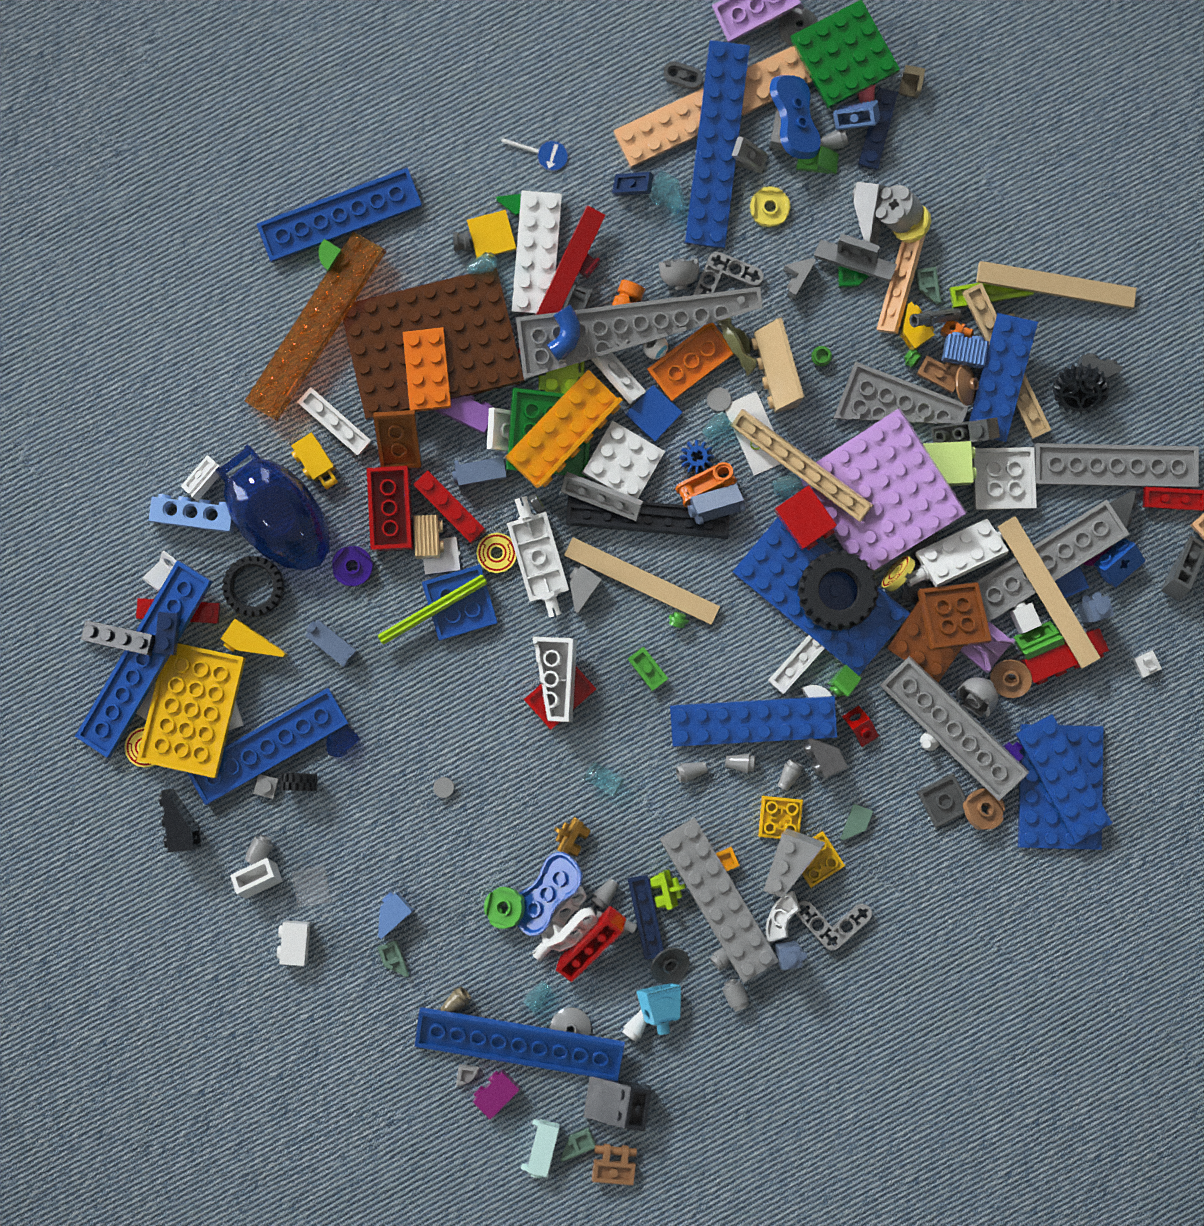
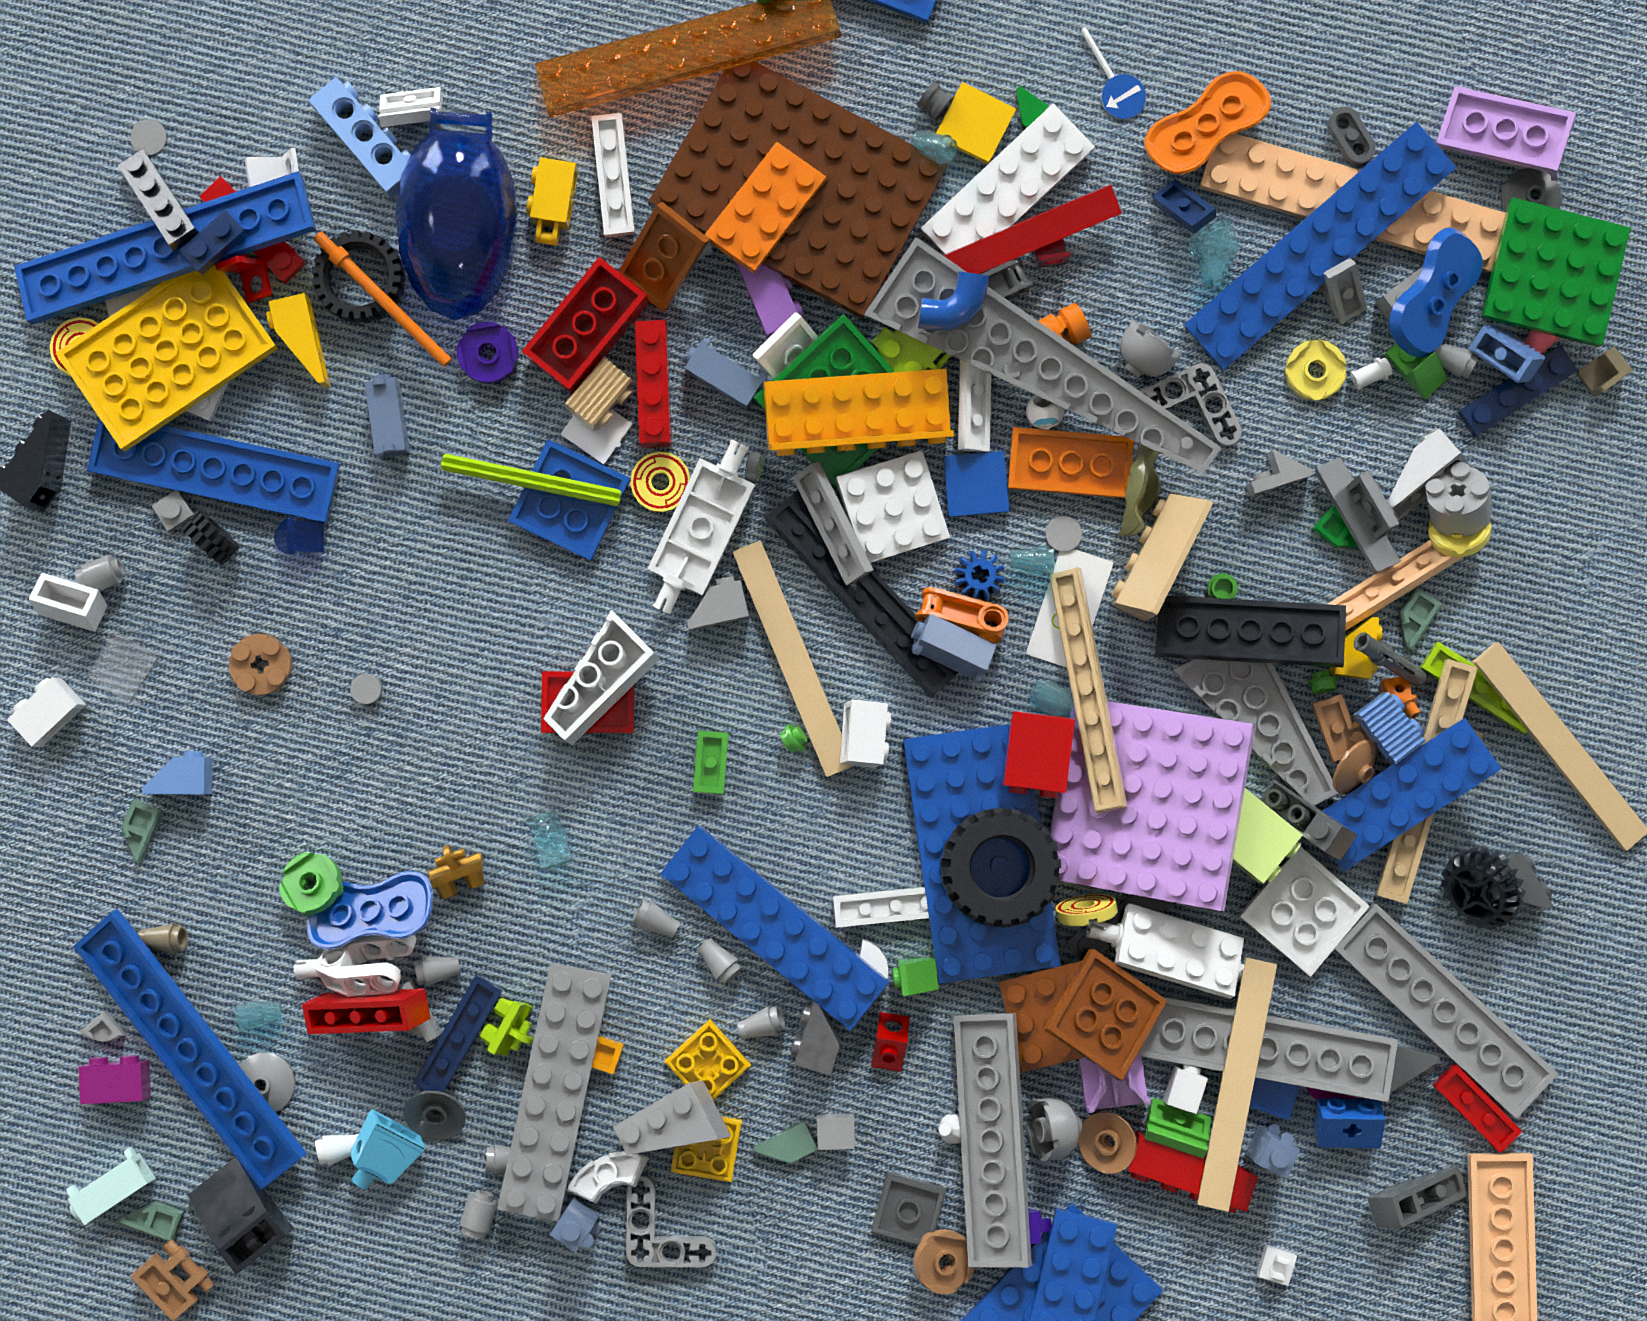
camera: 40 degrees right, 0 degrees up
(82, 611) = (148, 136): none -> light grey sticker
(193, 632) = (248, 269): none -> red bracket
(236, 585) = (341, 258): none -> orange bar
(391, 822) = (246, 653): none -> medium nougat plate
(604, 147) = (1225, 108): none -> orange plate
(711, 586) = (864, 733): none -> white brick
(799, 184) = (1369, 374): none -> white pin
(855, 364) = (1251, 631): none -> black plate
(874, 794) = (835, 1131): none -> light grey panel

